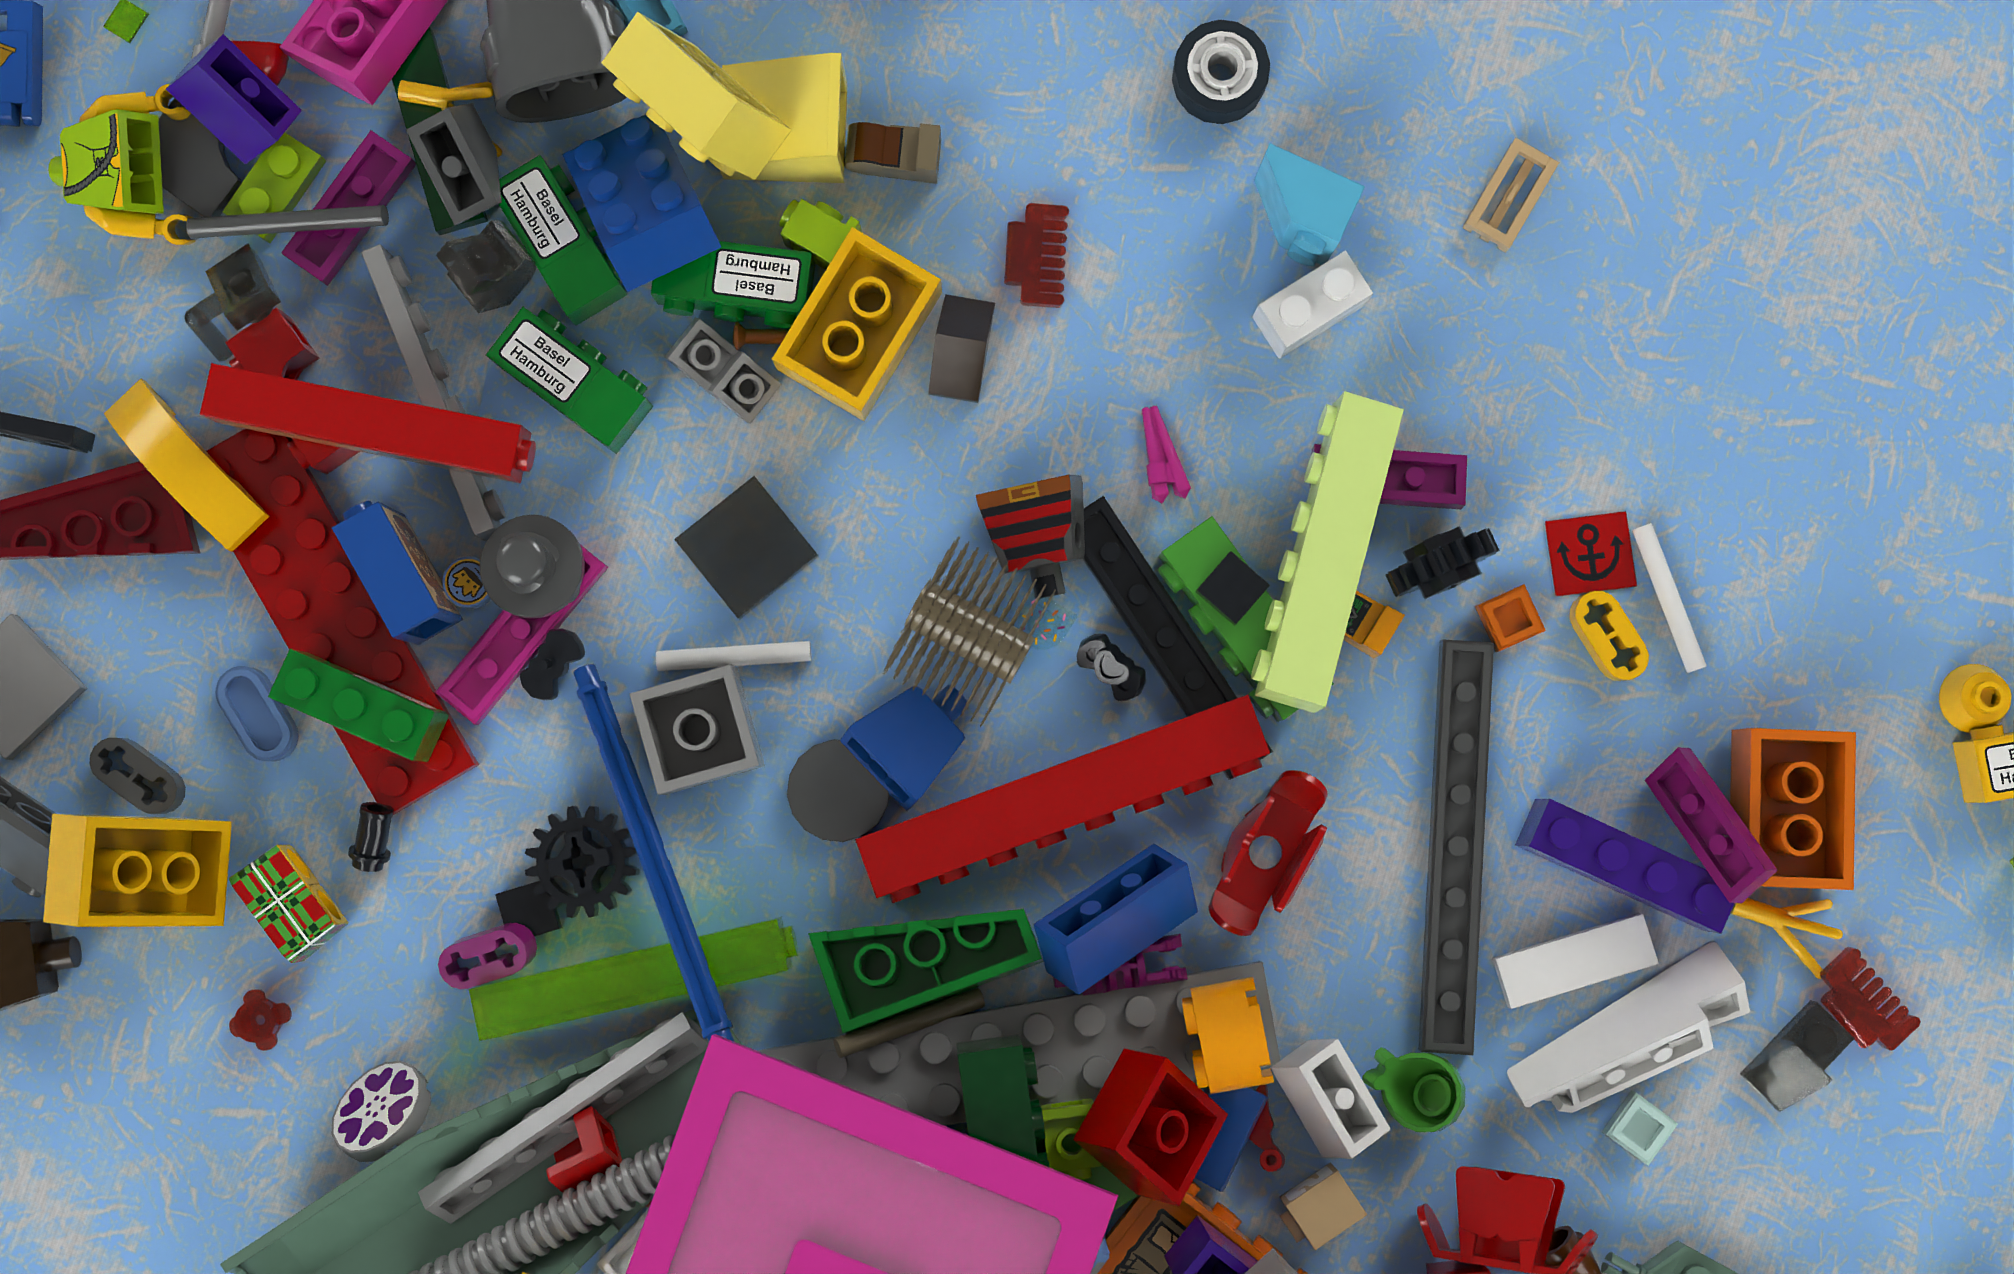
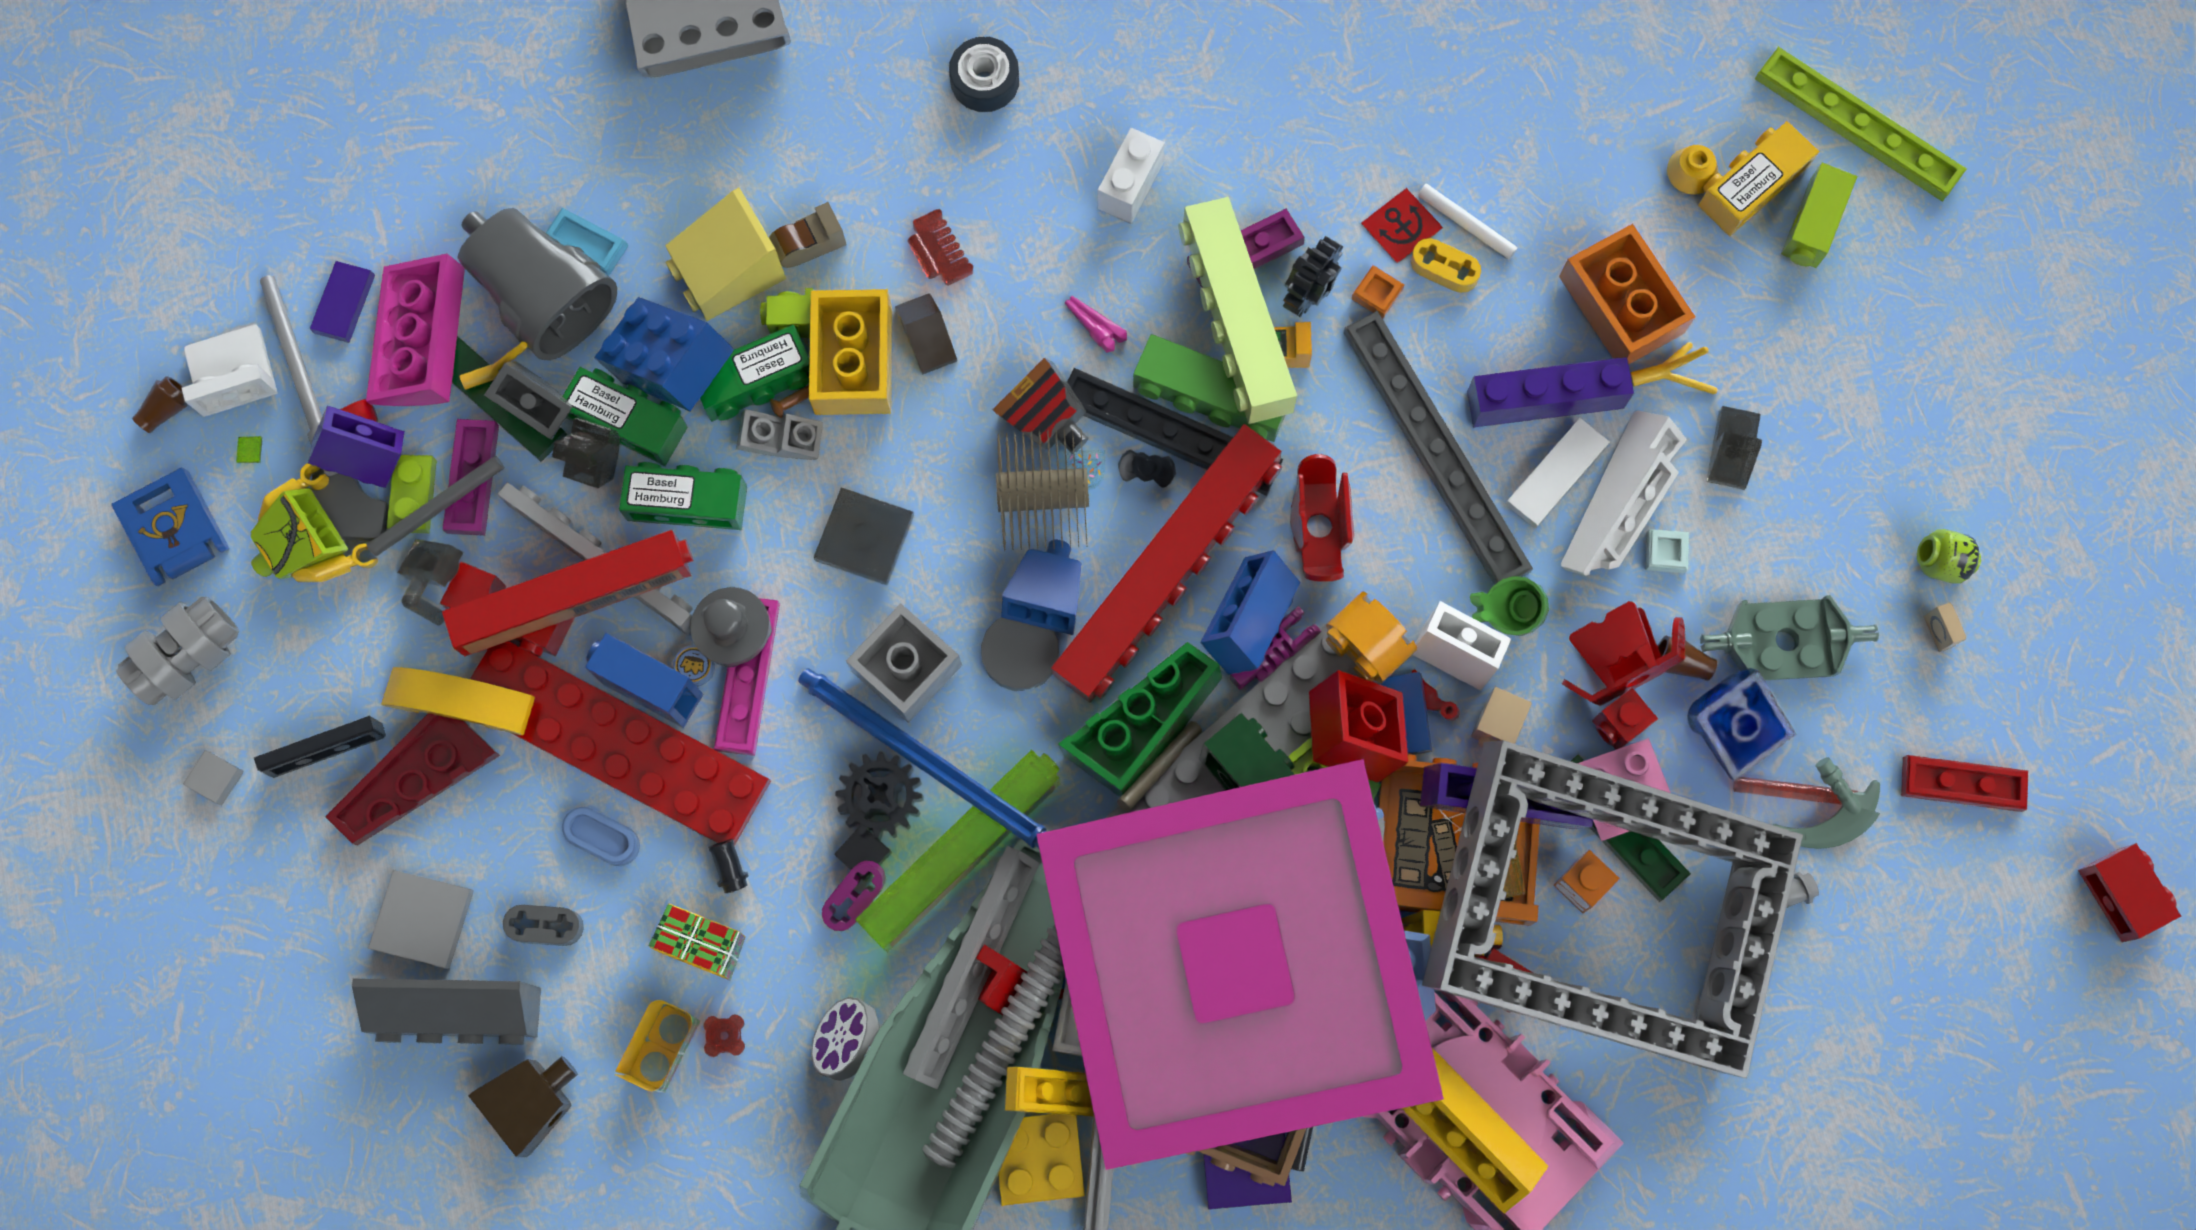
camera: 25 degrees left, 10 degrees down
(136, 871) = (583, 971): yellow brick -> none
(137, 1010) = (639, 1048): none -> yellow piece
(358, 705) = (669, 777): green brick -> none
(552, 662) = (780, 683): black piece -> none
(694, 98) = (662, 267): light yellow brick -> none
(734, 655) = (909, 601): white bar -> none
(1232, 588) = (1192, 367): black tile -> none
(1305, 204) = (1087, 116): medium azure slope -> none
(1489, 231) = (1212, 71): tan tile -> none
(1710, 825) = (1583, 332): magenta plate -> none
(1855, 1010) = (1751, 397): clear red piece -> none

